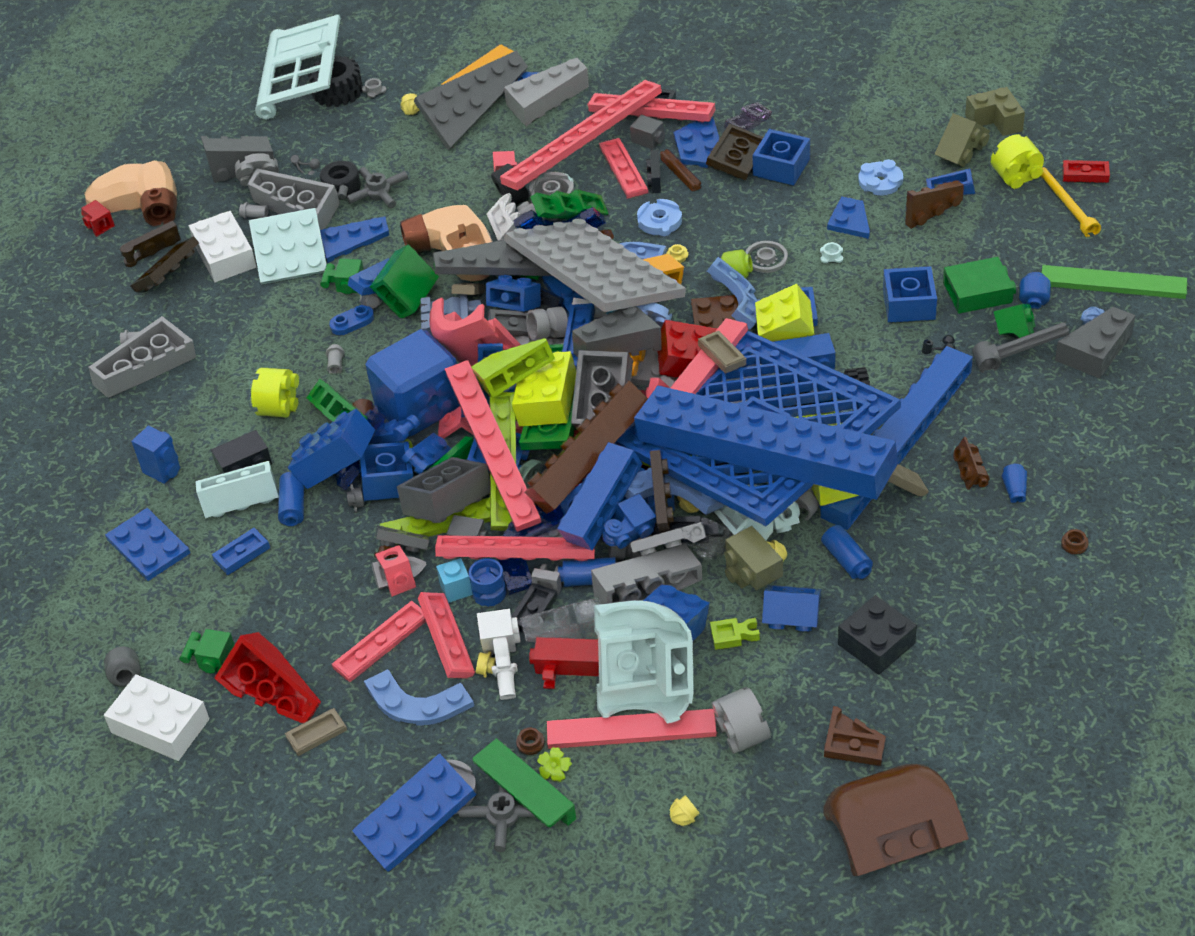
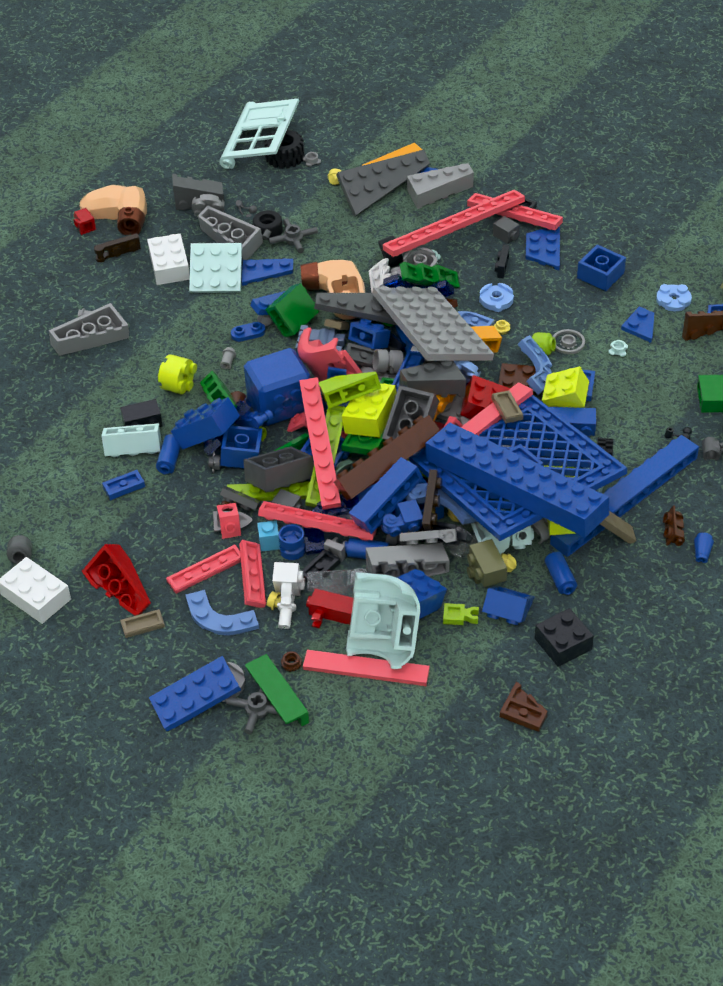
camera: 10 degrees right, 0 degrees up
(147, 544) = (59, 466): blue plate -> none
(156, 454) = (81, 403): blue brick -> none
(168, 263) = (124, 265): dark brown plate -> none
(209, 651) = (81, 549): green brick -> none
(253, 211) = (199, 237): light grey pin -> none
(341, 275) = (251, 293): green brick -> none
(426, 453) = (273, 439): blue plate -> none
(503, 158) = (392, 230): coral bracket -> none
(554, 764) = (303, 681): lime plant -> none
(623, 168) = (480, 254): coral tile -> none
(680, 170) = (523, 264): reddish brown axle -> none
(683, 811) = (385, 733): light yellow plate -> none
(735, 152) = (565, 257): dark brown plate -> none
(741, 719) = (444, 677): light grey brick -> none
(750, 116) = (588, 232): slope -> none
(894, 816) = (535, 769): reddish brown piece -> none
(909, 294) = (666, 390): blue brick -> none

